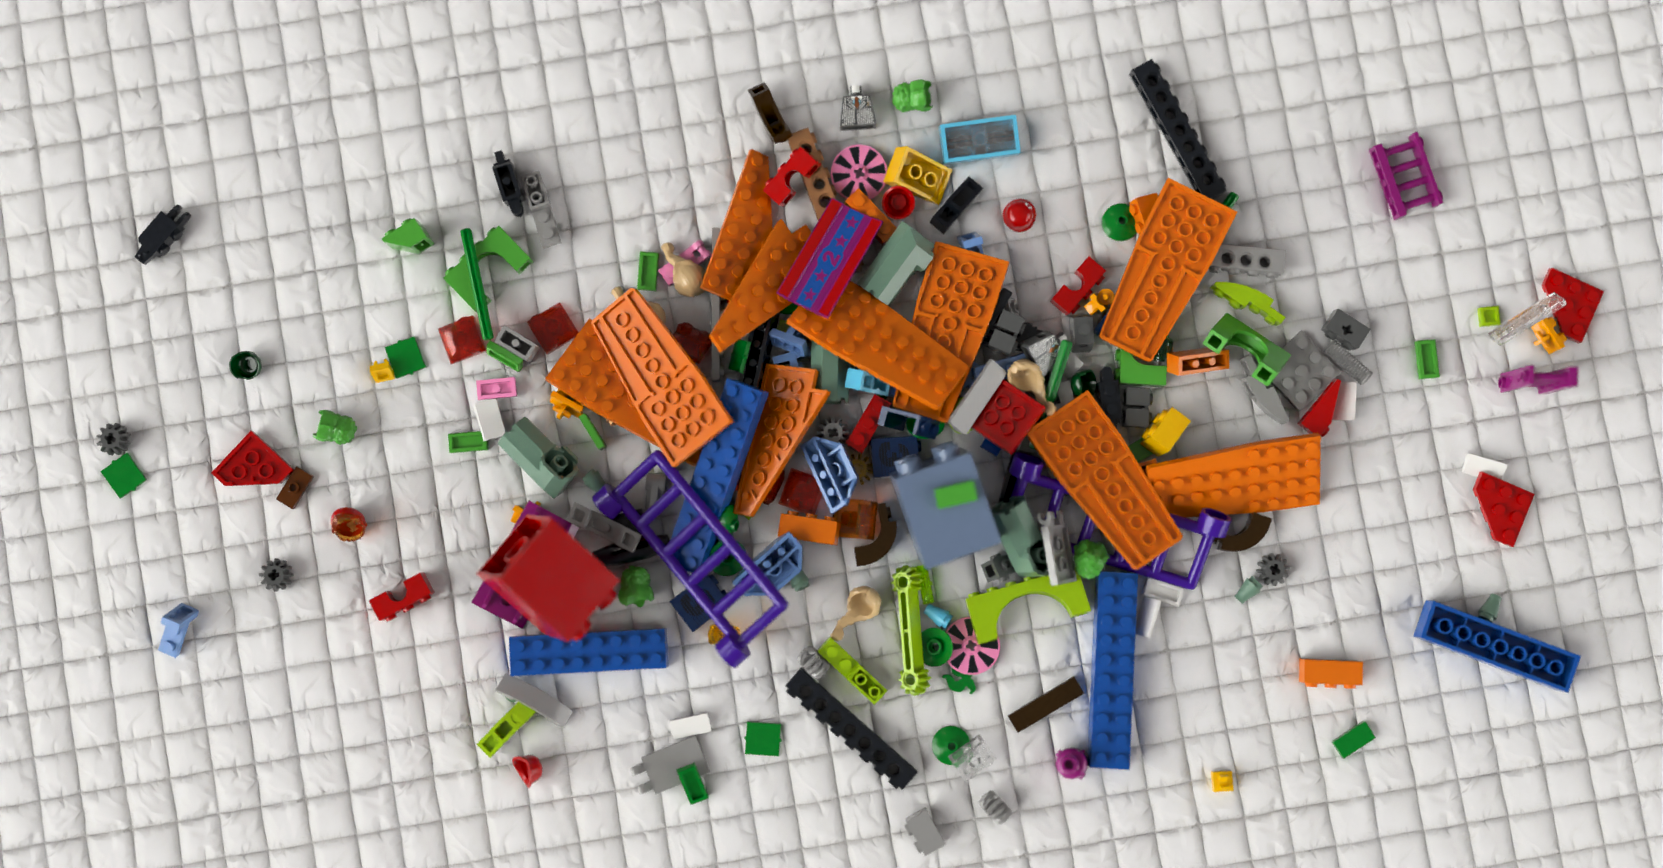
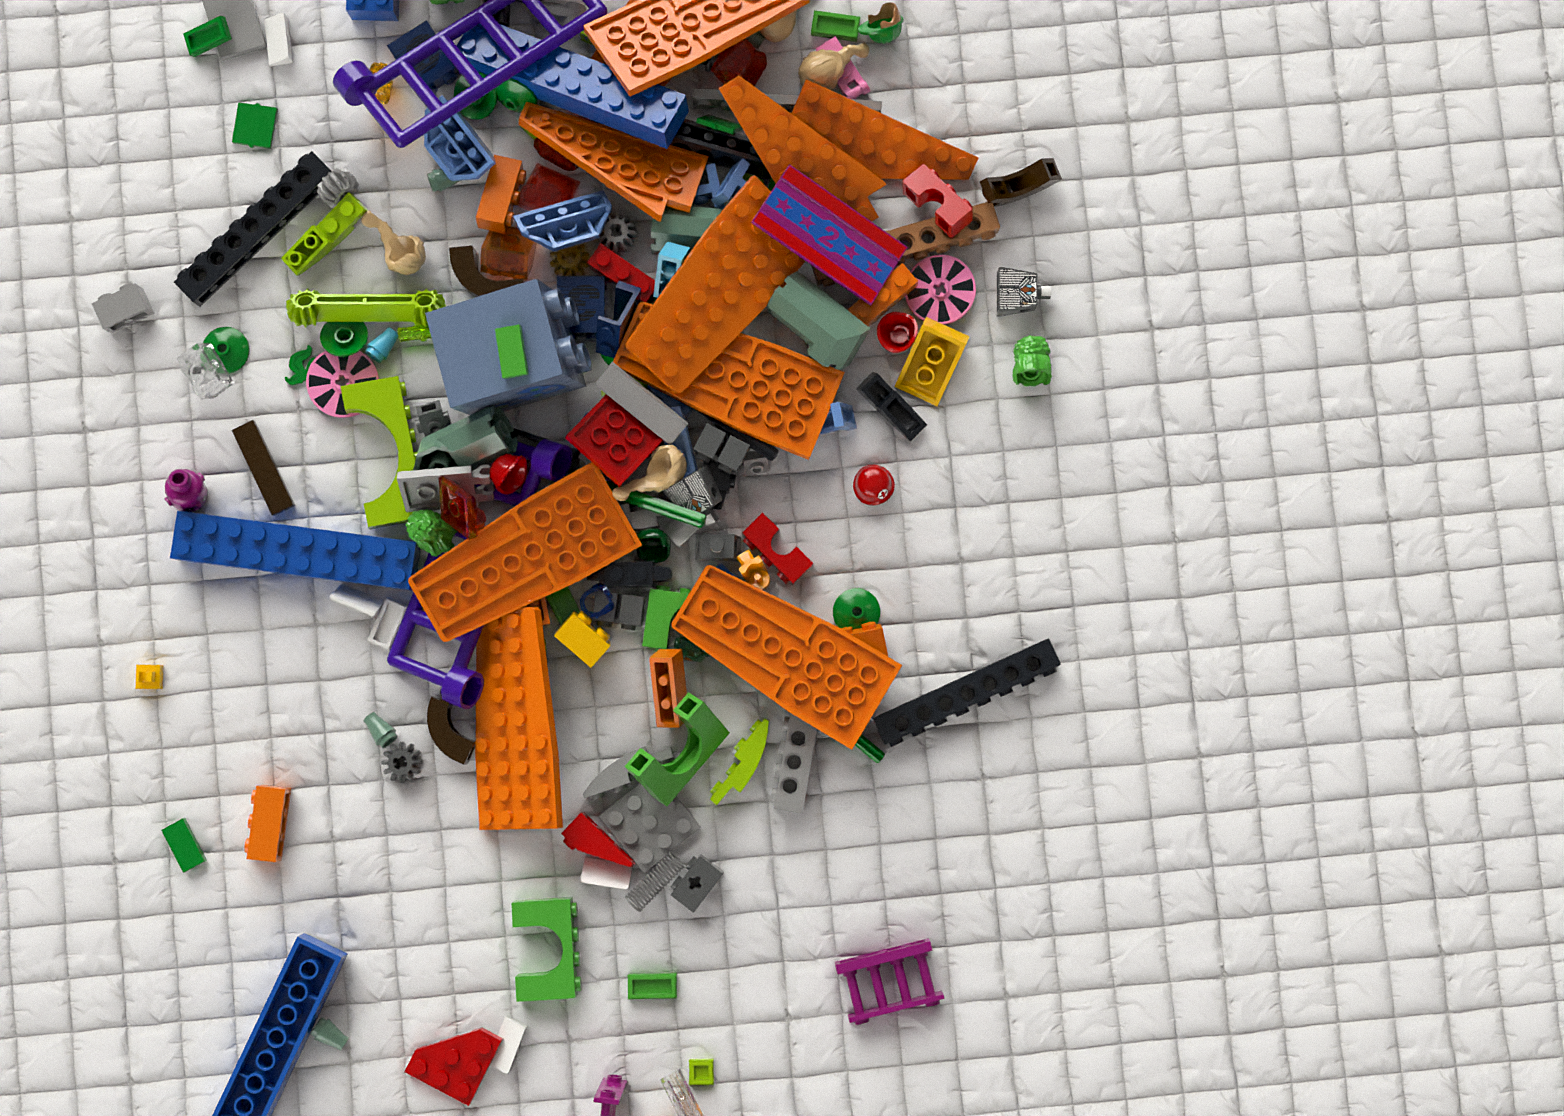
camera: 95 degrees right, 0 degrees up
(647, 232) = (884, 26): none -> piece
(979, 139) = (971, 439): clear brick -> none
(995, 807) = (142, 393): light grey gear -> none
(1041, 499) = (508, 473): none -> red helmet
(1076, 532) = (460, 509): none -> clear red slope
(1123, 425) = (609, 607): none -> clear blue piece
(1431, 430) = (558, 916): none -> bright green arch

